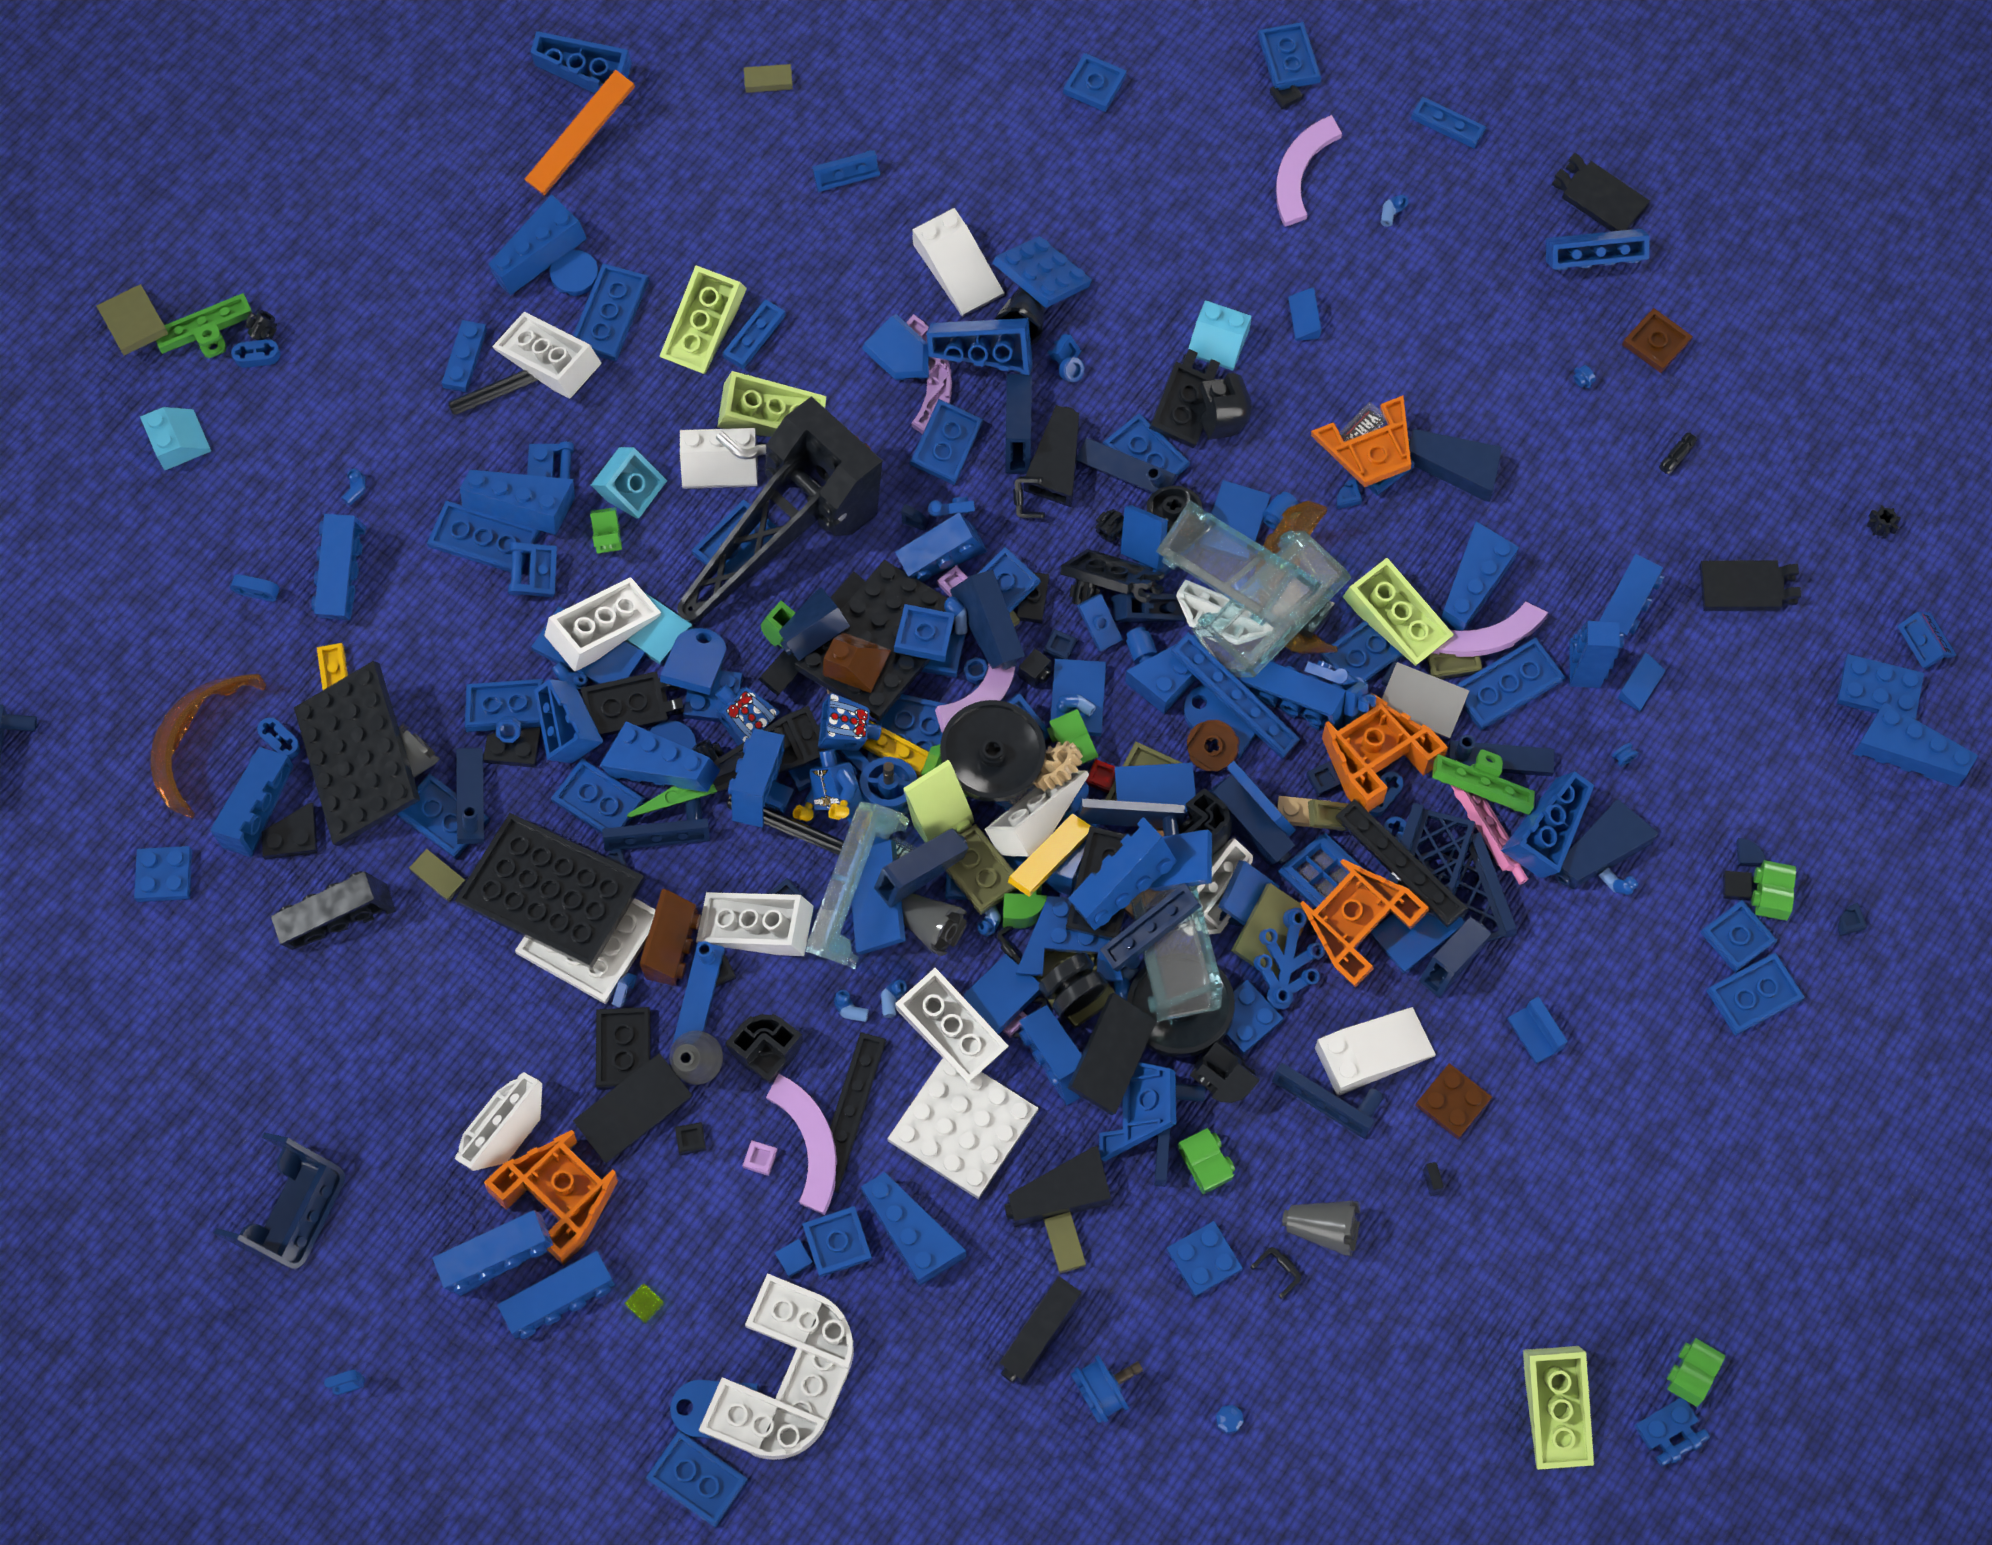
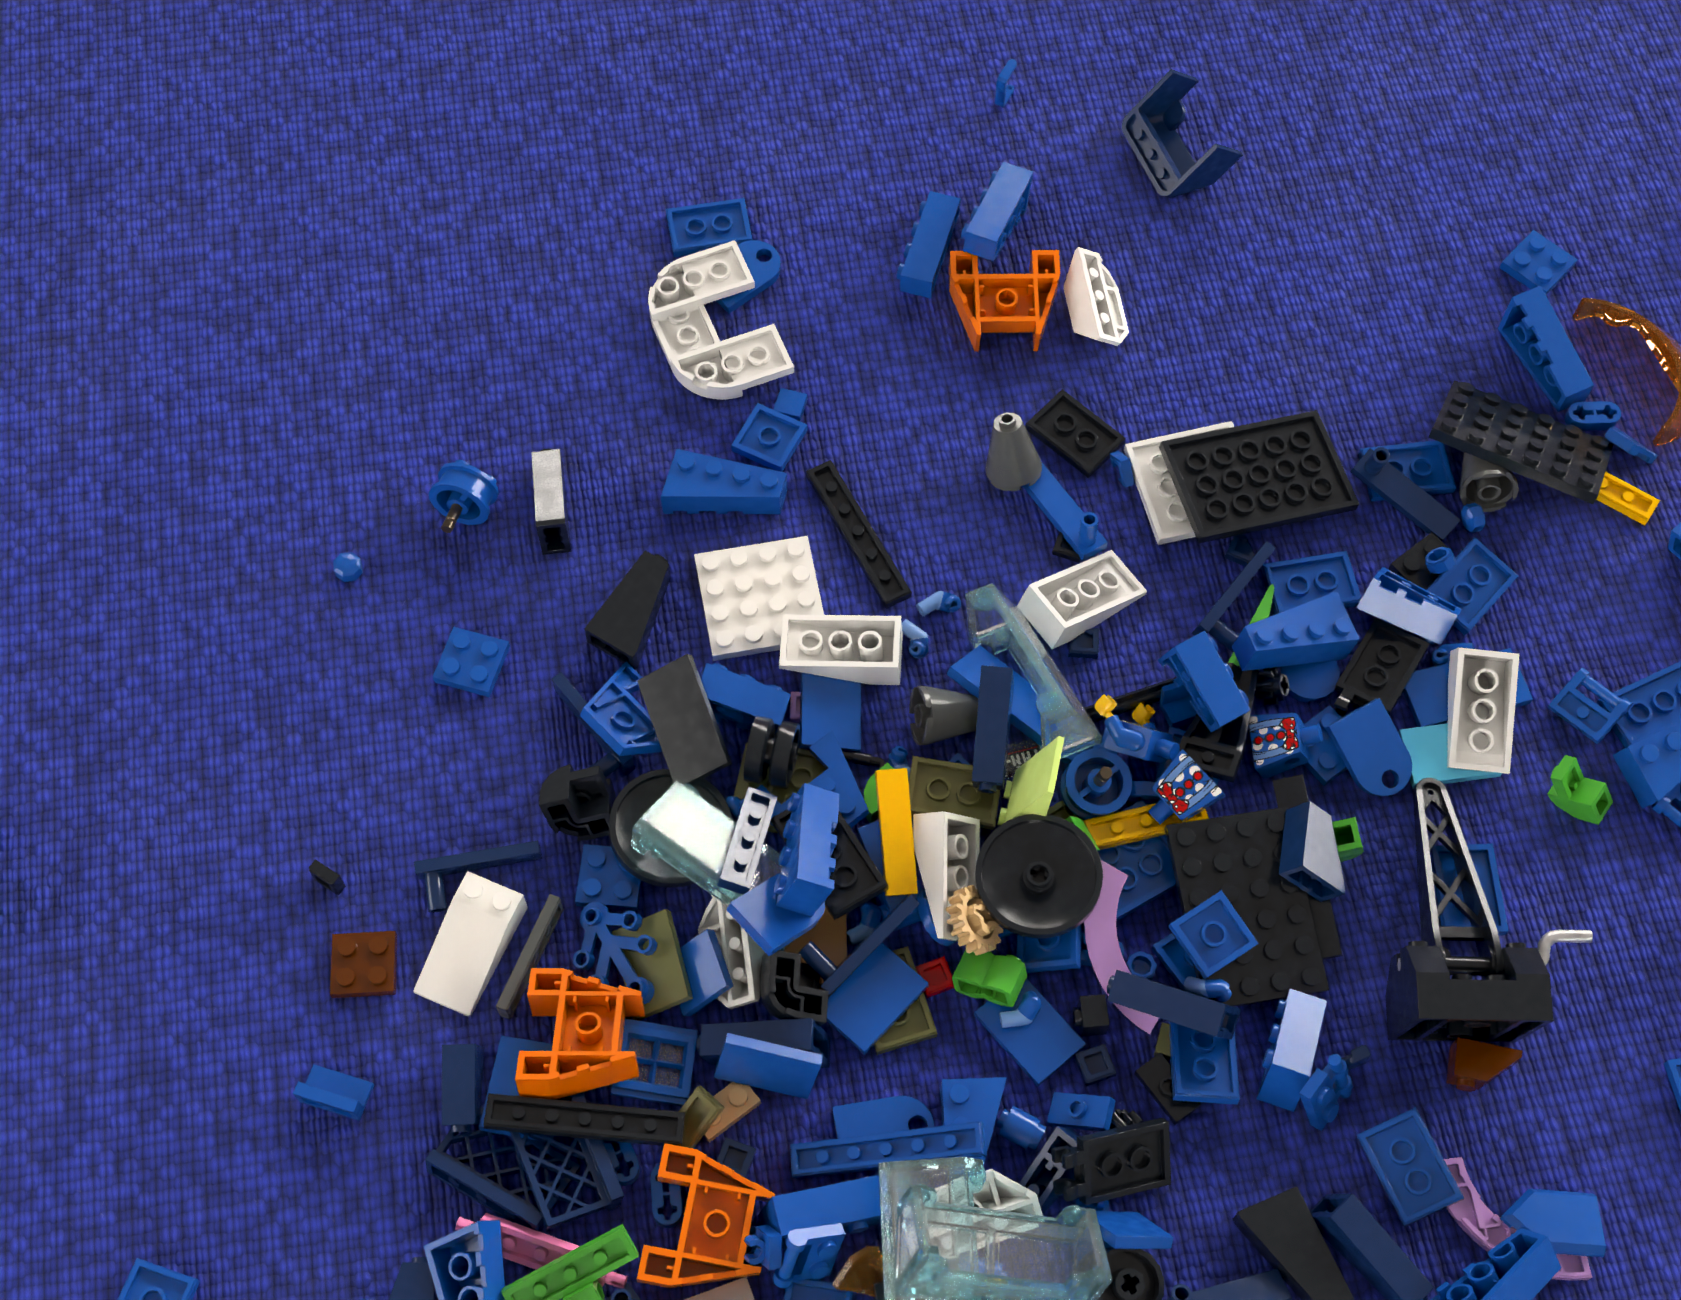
camera: 135 degrees right, 5 degrees down
(284, 699) = (1630, 445): none -> blue tile
(291, 835) = (1490, 364): black wing -> none
(332, 910) = (1391, 335): wedge -> none
(437, 875) = (1355, 427): olive tile -> none
(446, 743) = (1473, 517): none -> blue tile
(629, 481) = (1616, 855): medium azure slope -> none
(632, 1108) = (1020, 388): black tile -> none
(644, 1303) = (865, 292): clear neon green tile -> none
(669, 939) = (1131, 521): reddish brown slope -> none
(690, 1138) = (954, 417): black tile -> none
(711, 465) = (1577, 964): white slope -> none
(759, 403) = (1590, 1043): yellowish green slope -> none
(760, 1158) = (889, 447): lavender tile -> none
(765, 1045) = (970, 511): black brick -> none
(818, 1141) = (861, 489): lavender tile -> none
(855, 661) = (1240, 849): reddish brown slope -> none
(951, 579) = (1250, 1036): lavender tile -> none
(1019, 499) = (1267, 1163): black piece -> none
(1064, 1242) = (591, 579): olive tile -> none
(1110, 525) = (1174, 1221): black gear -> none
(1206, 1161) = (535, 729): bright green brick -> none
(1227, 744) = (863, 1103): reddish brown plate -> none
(1285, 1263) = (402, 713): black piece -> none
(1325, 1224) = (387, 759): dark grey cone -> none
(1343, 1005) = (530, 957): none -> dark grey tile
(1559, 1406) = (77, 790): yellowish green slope -> none

